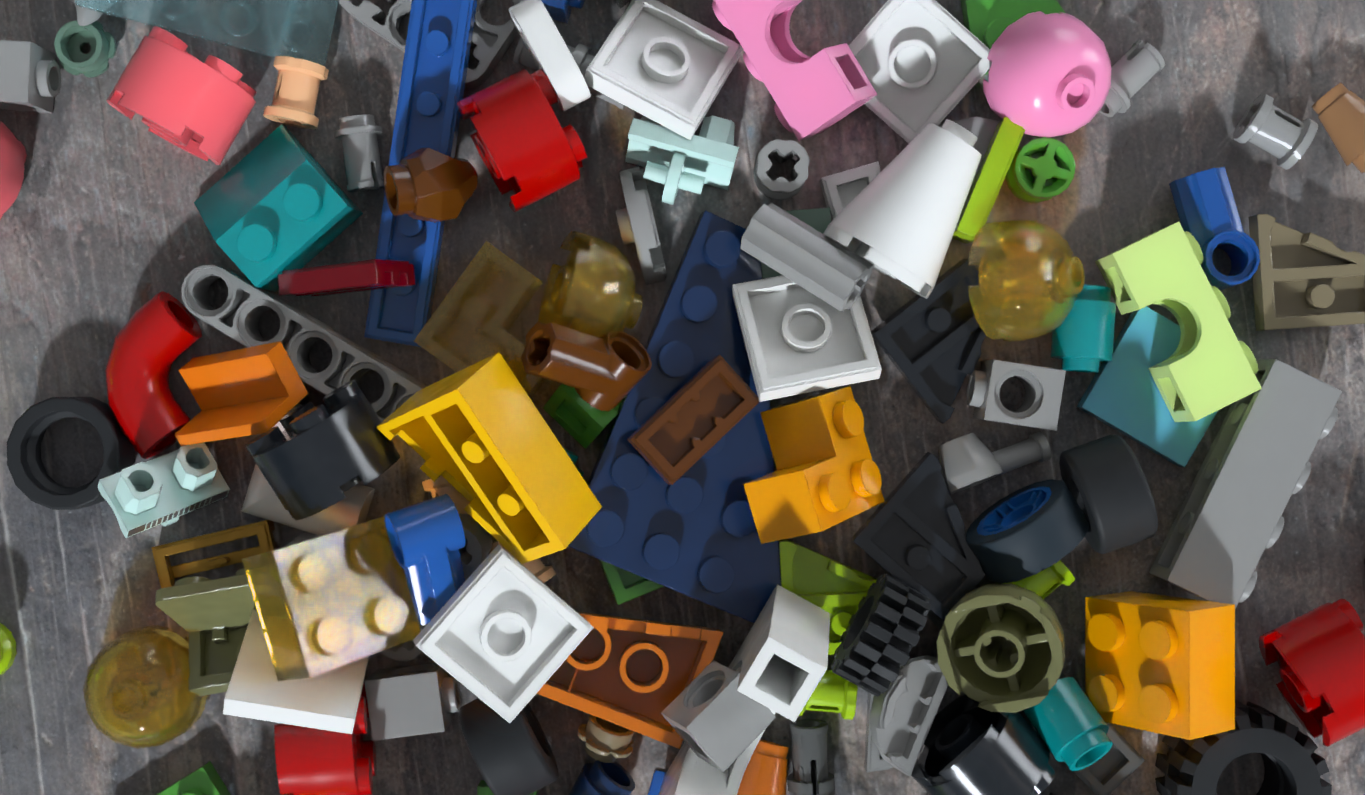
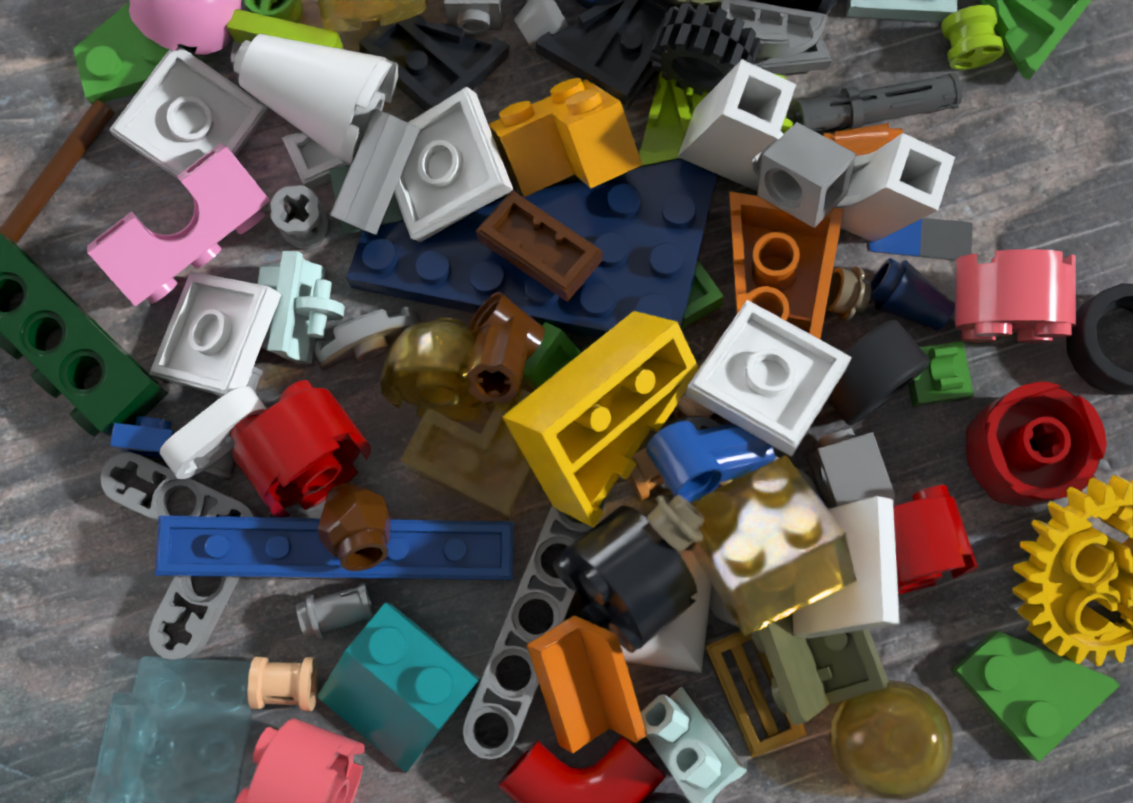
camera: 100 degrees left, 10 degrees down
(346, 278) = (456, 597): dark red tile -> none
(360, 511) = (677, 521): none -> dark tan plate

